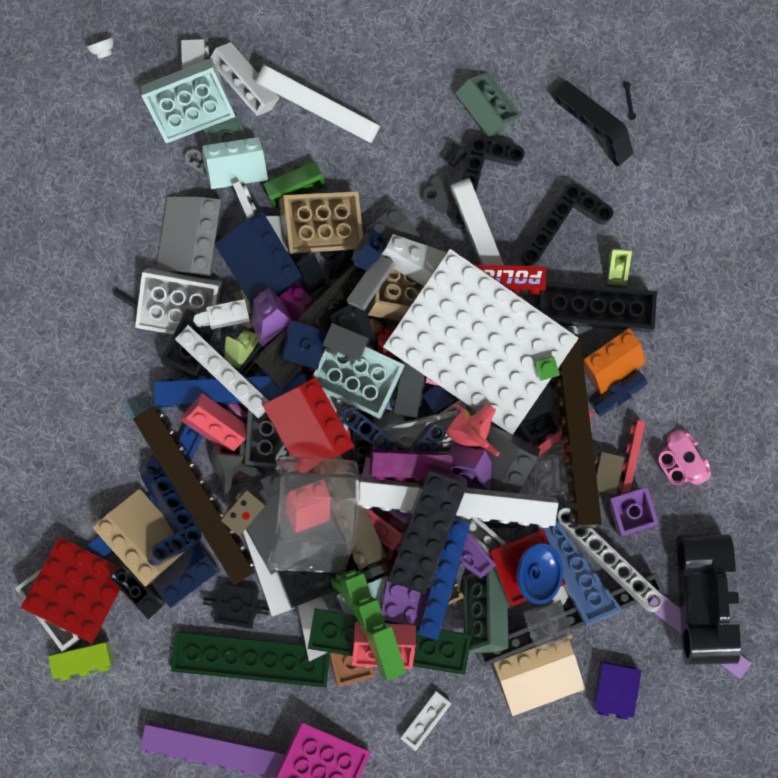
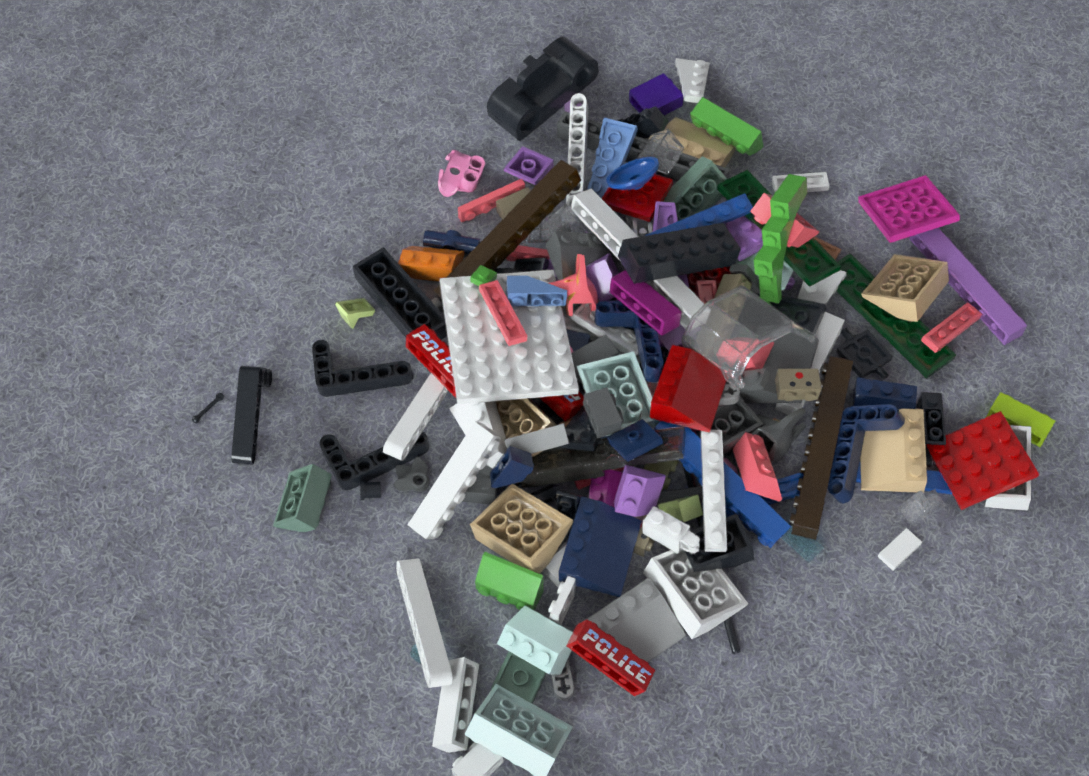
camera: 130 degrees left, 25 degrees down
(77, 470) = (899, 549): none -> white tile
(177, 196) = (611, 657): none -> red brick
(192, 691) = (951, 327): none -> coral plate
(256, 696) = (907, 286): none -> tan slope
(397, 205) = (454, 481): none -> white brick
(497, 349) = (503, 313): none -> coral plate
(502, 385) = (533, 292): none -> medium blue slope
(528, 710) = (727, 127): none -> bright green slope
(596, 645) = (647, 122): none -> black slope
(610, 742) = (692, 78): none -> white wing

